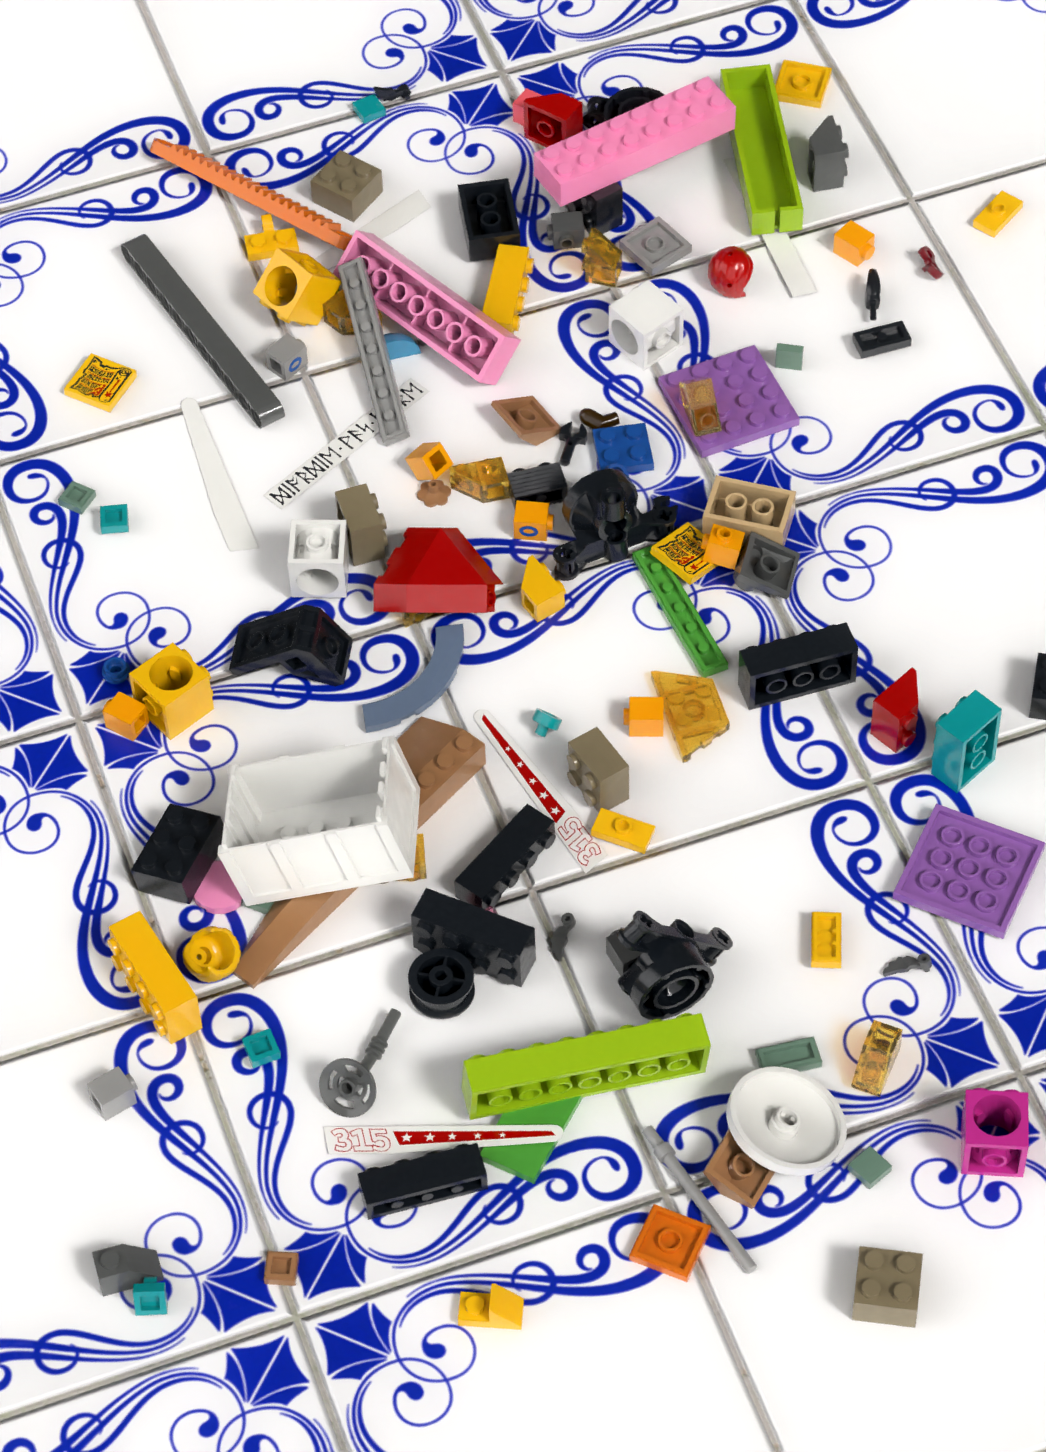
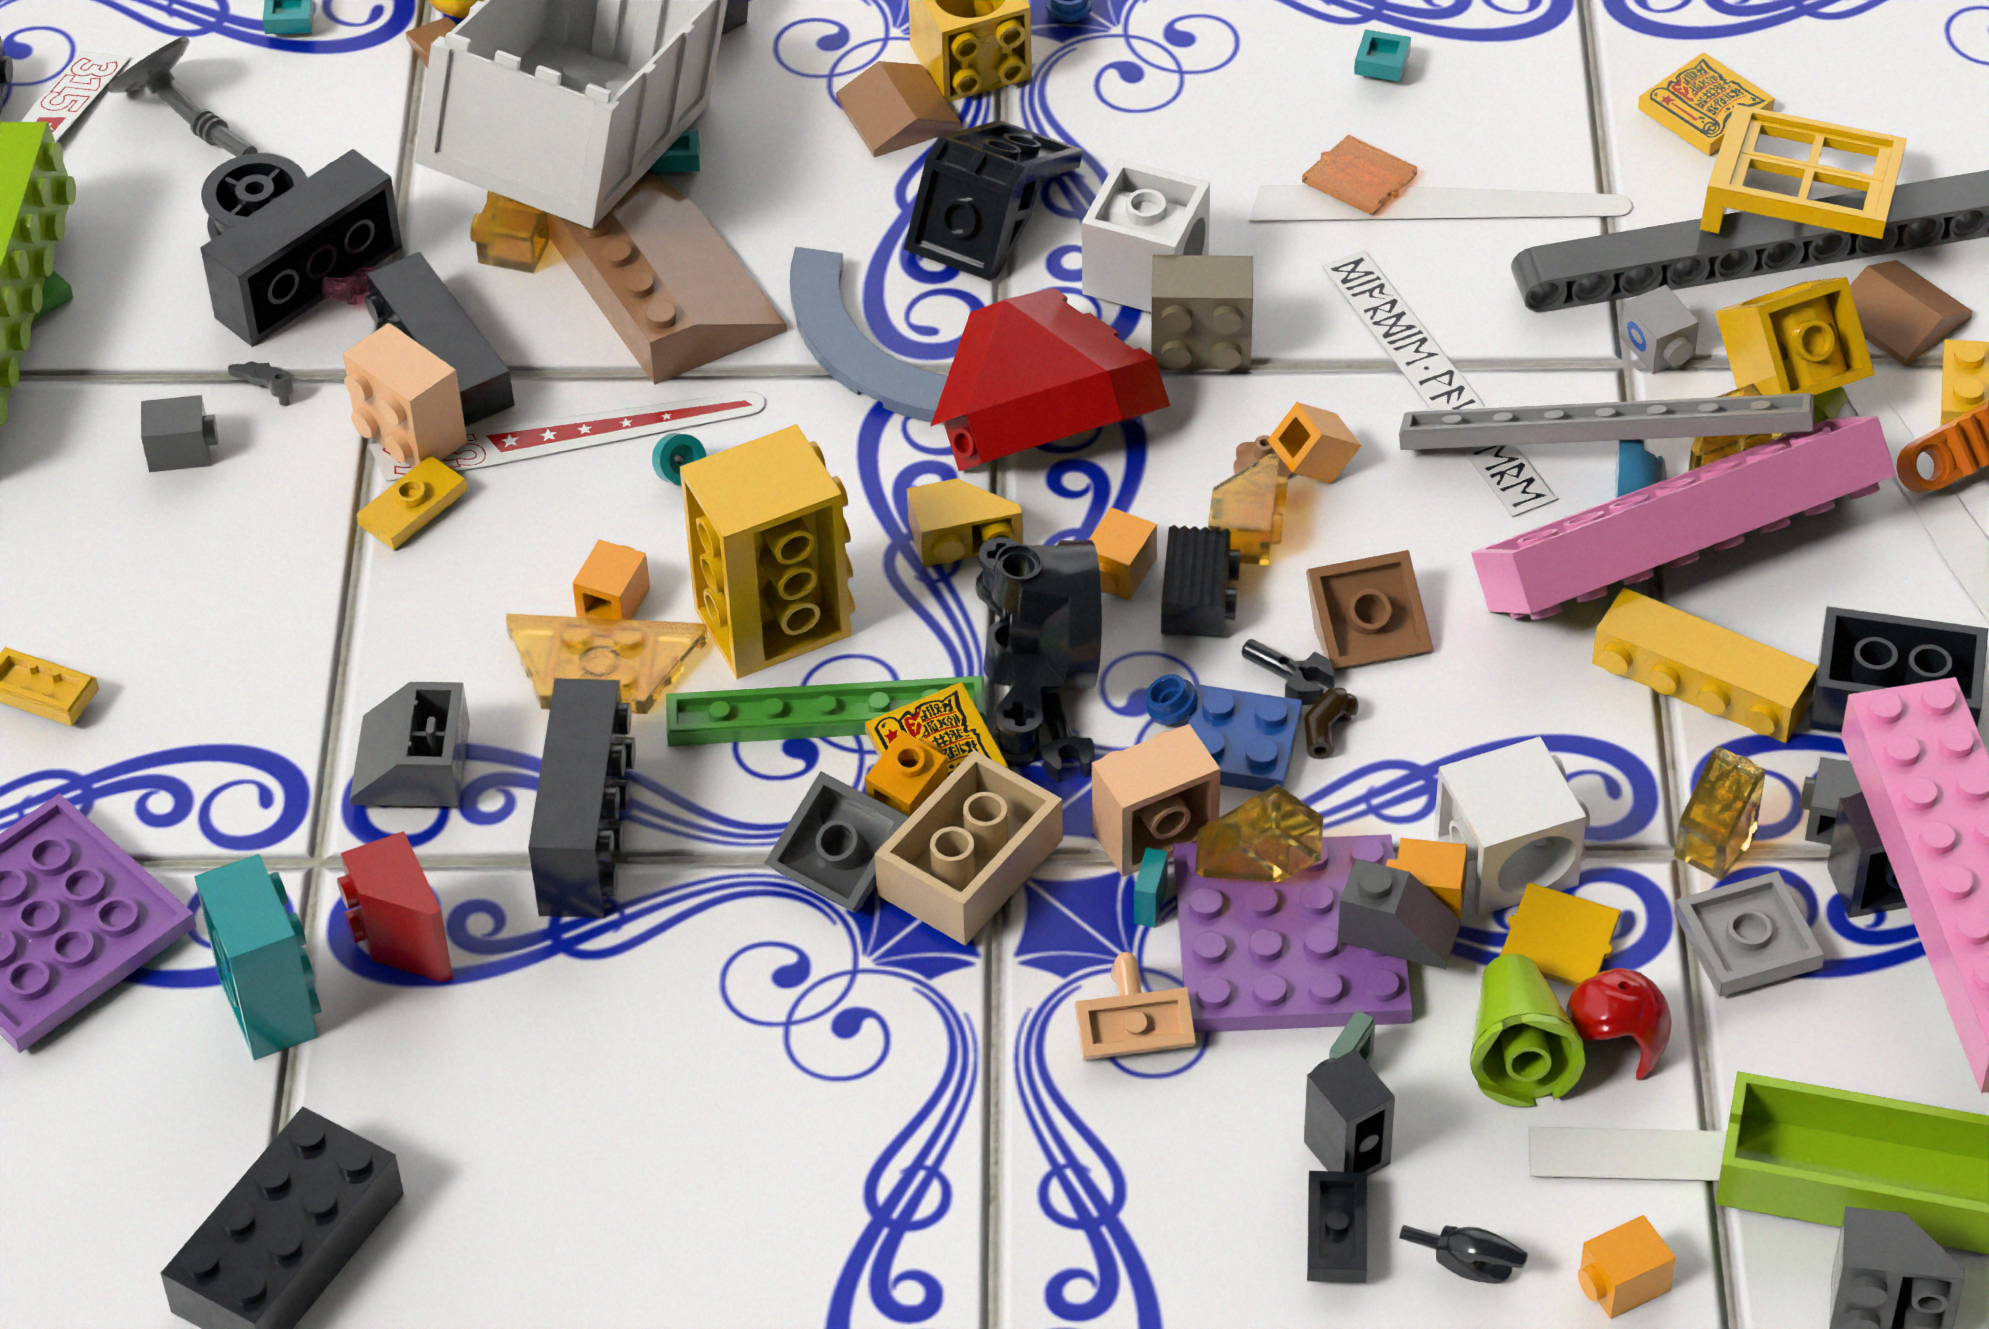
camera: 110 degrees right, 5 degrees down
(77, 497) = (1458, 31): sand green tile -> none
(170, 341) = (1738, 155): none -> yellow window
(208, 509) = (1359, 174): none -> clear orange piece
(229, 278) = (1904, 310): none -> medium nougat slope
(231, 724) = (896, 107): none -> medium nougat slope
(570, 840) = (404, 397): none -> light nougat brick
(598, 770) = (520, 472): dark tan brick -> none
(628, 620) = (768, 550): none -> yellow brick
(673, 966) = (66, 430): black piece -> none
(689, 345) = (1438, 867): none -> light orange brick
(691, 450) = (1153, 796): none -> light nougat brick
(694, 307) = (1561, 934): none -> yellow piece
(719, 353) = (1395, 915): none -> dark grey slope
(733, 449) = (1150, 887): none -> teal tile
(751, 299) = (1523, 1036): none -> lime cone
(794, 753) = (413, 747): none -> dark grey slope
(811, 431) = (1134, 1019): none -> light nougat plate
(836, 337) = (1348, 1115): none -> black brick

